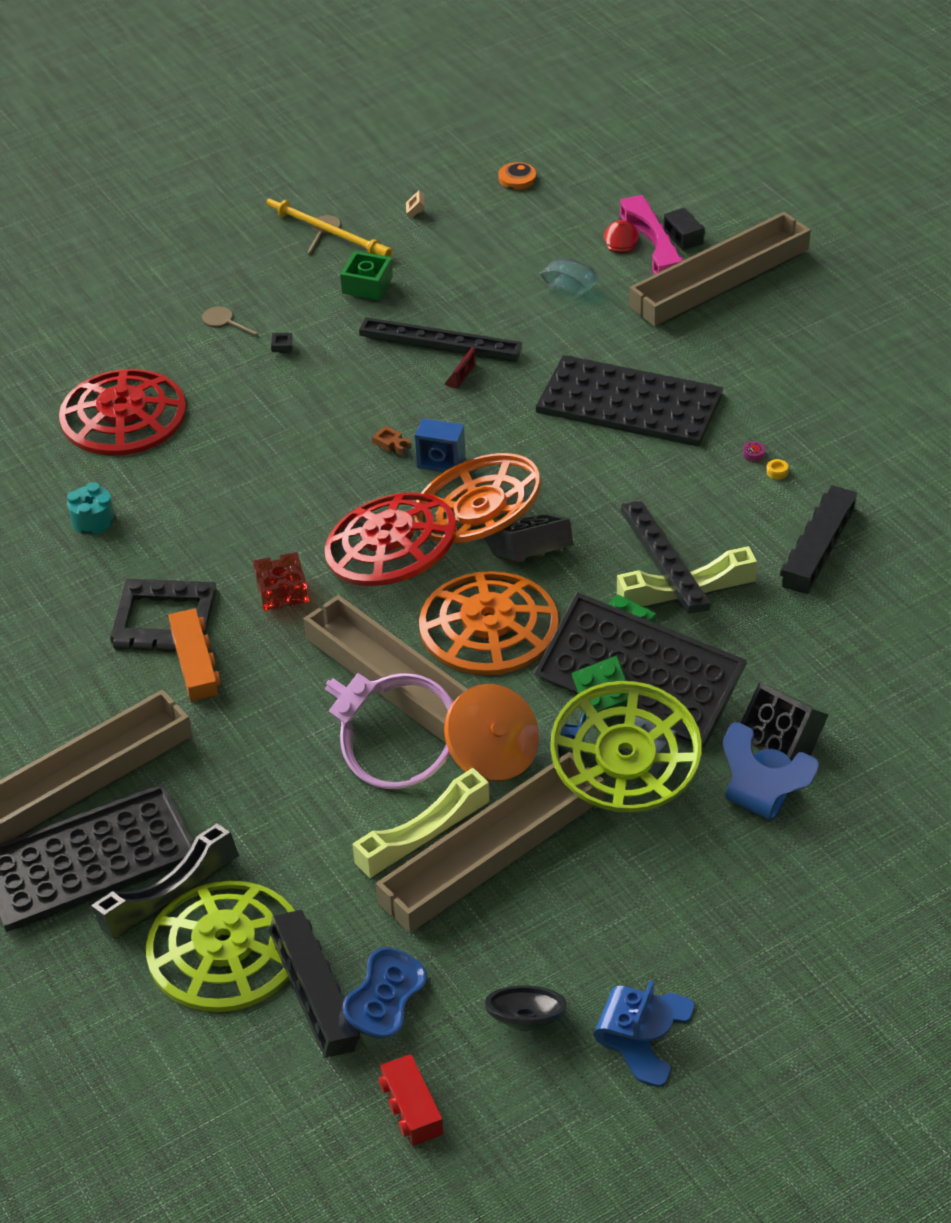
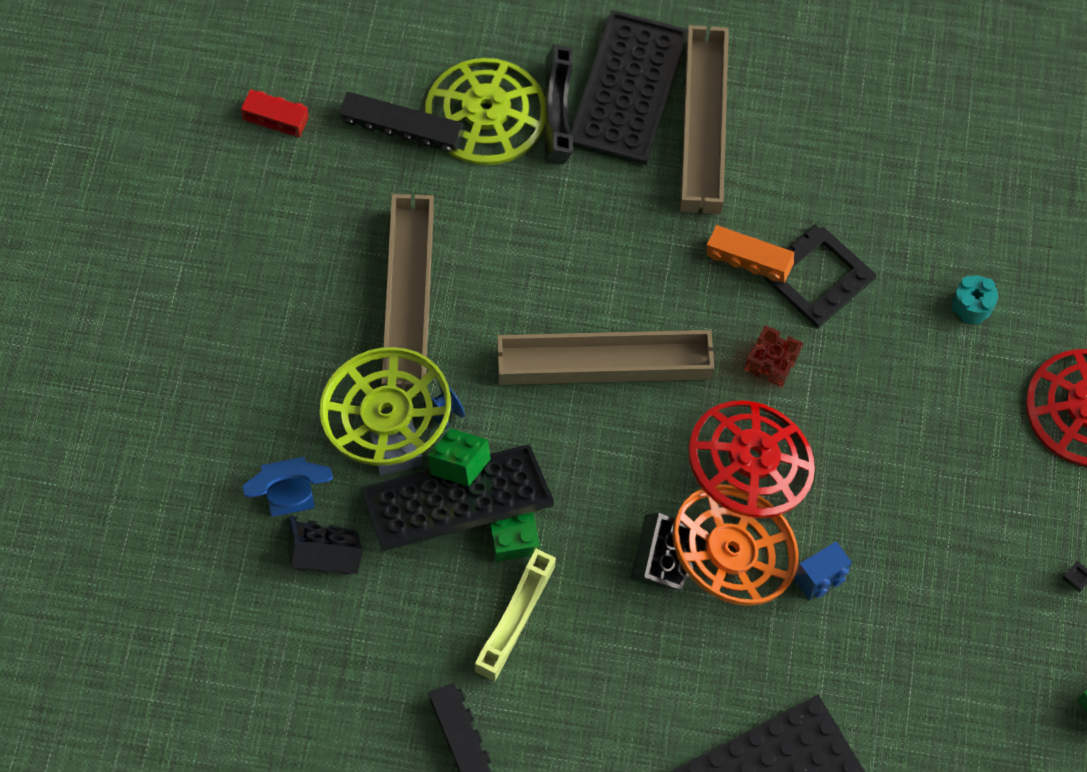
camera: 125 degrees right, 20 degrees up
(353, 697) = (602, 300): lavender brick -> none
(380, 1001) = (363, 163): blue plate -> none
(385, 847) = (463, 268): yellowish green arch -> none
(391, 439) = (875, 555): dark orange plate -> none
(440, 338) = (974, 698): black plate -> none
(462, 370) = (918, 680): dark red slope -> none
(488, 626) = (609, 474): orange dish -> none
(492, 732) = (489, 356): orange dish -> none
(525, 1006) = (282, 207): black dish -> none
(634, 1020) = (197, 256): blue piece -> none
(665, 557) = (554, 622): black plate -> none

